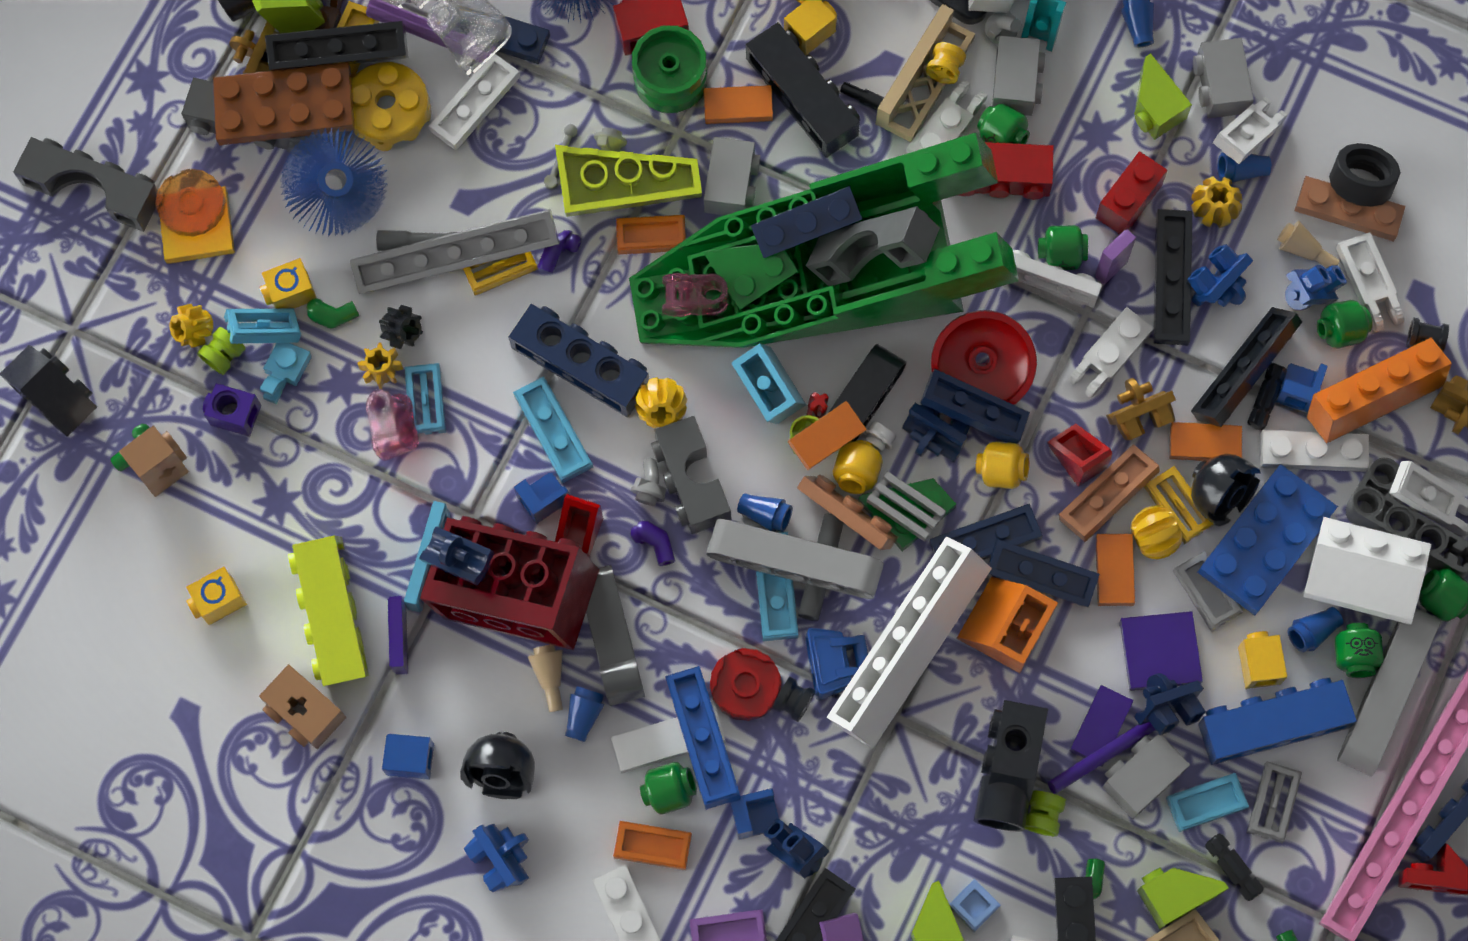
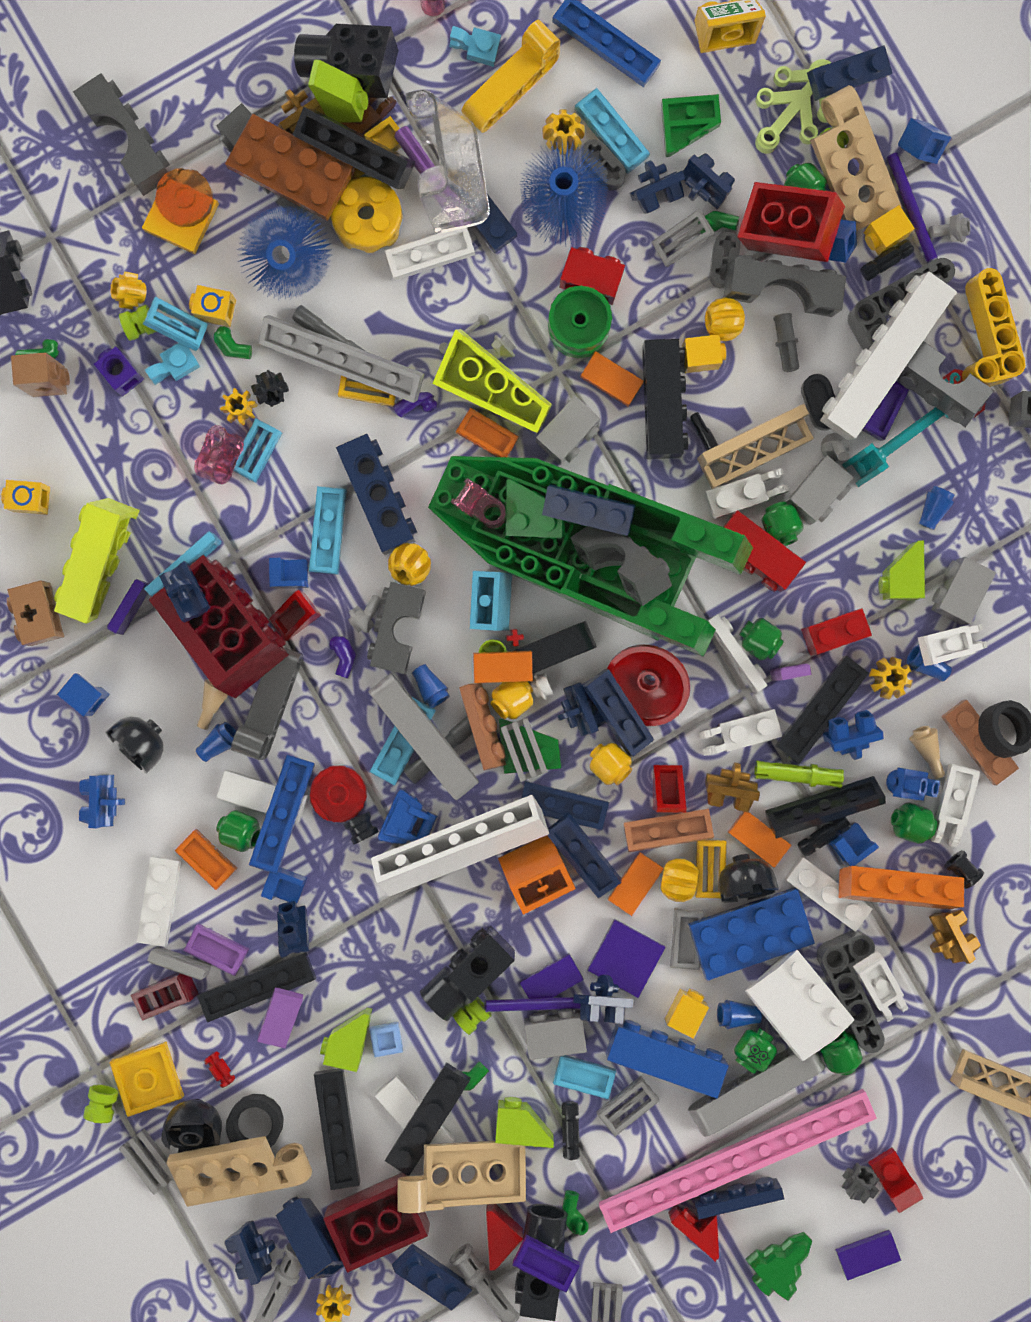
camera: 30 degrees right, 15 degrees up
(946, 63) = (775, 449): yellow wheel -> none
(1209, 346) = (809, 775): none -> lime pin

